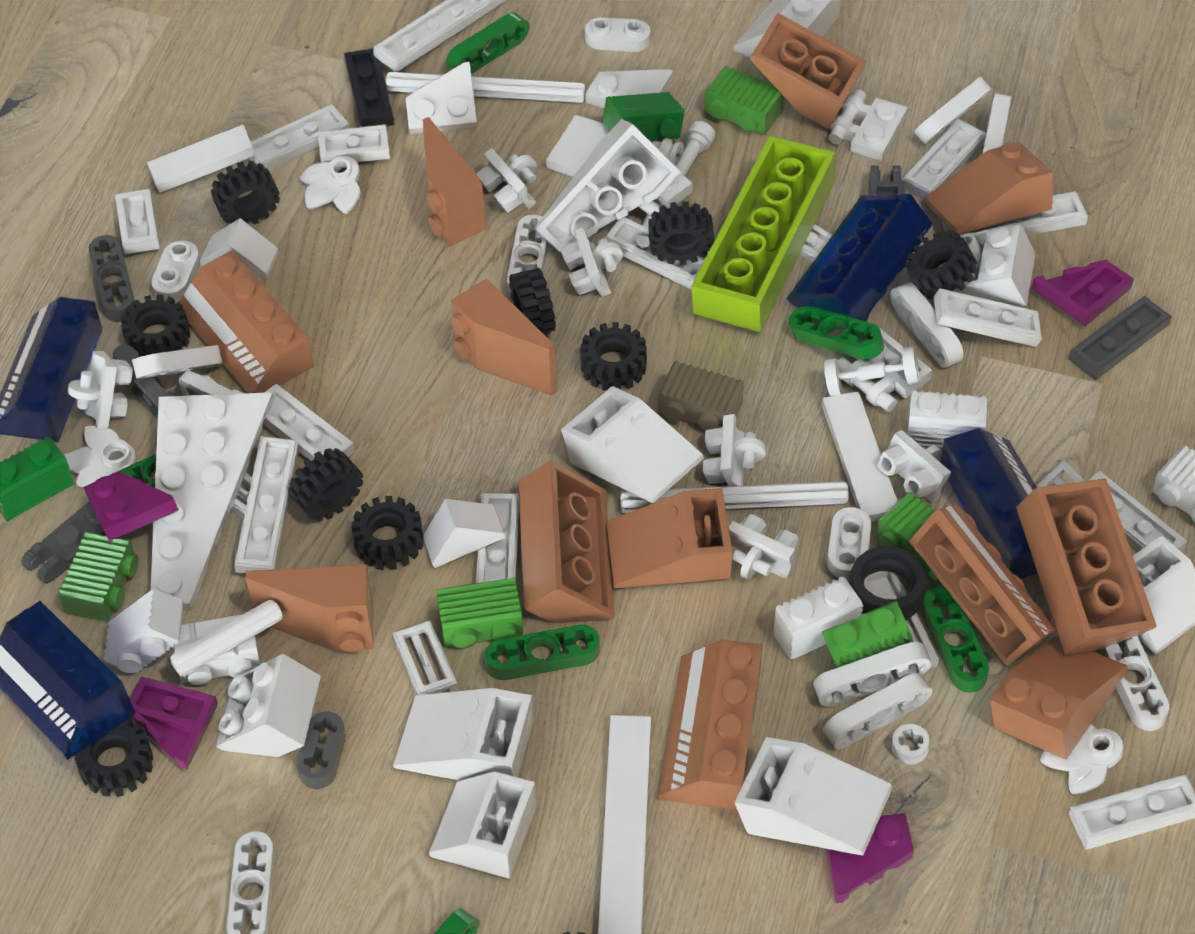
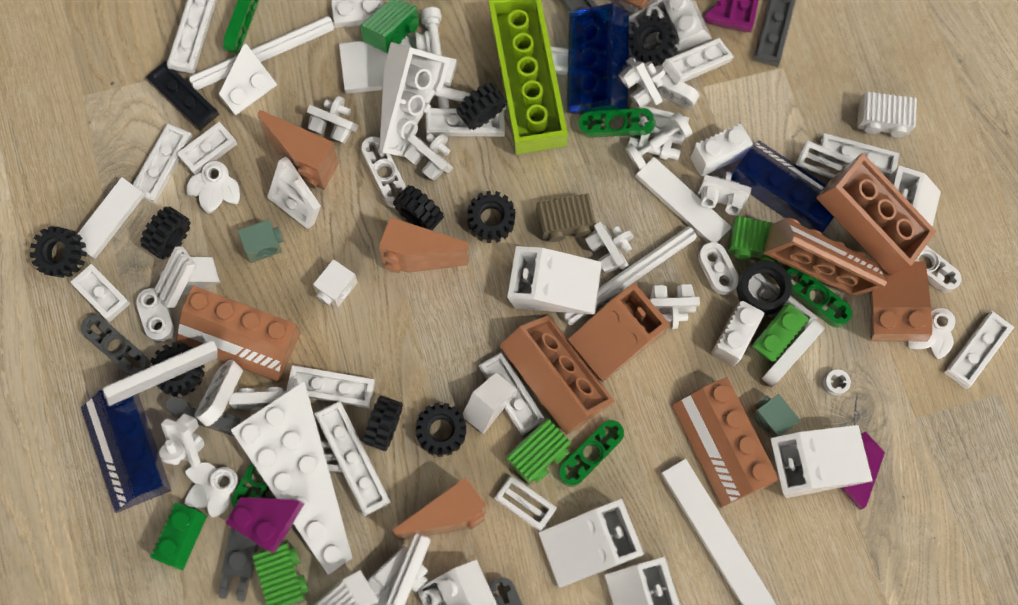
camera: 40 degrees left, 20 degrees up
(118, 150) = (44, 249): none -> black tyre
(131, 306) = (160, 373): none -> white tile
(220, 234) = (175, 277): none -> white tile
(339, 254) = (261, 240): none -> sand green brick
(385, 333) = (334, 284): none -> white brick
(407, 224) = (293, 194): none -> white wing
(798, 722) = (774, 416): none -> sand green brick
(877, 710) = (808, 374): white beam -> none
(890, 281) = (638, 74): none -> white hips

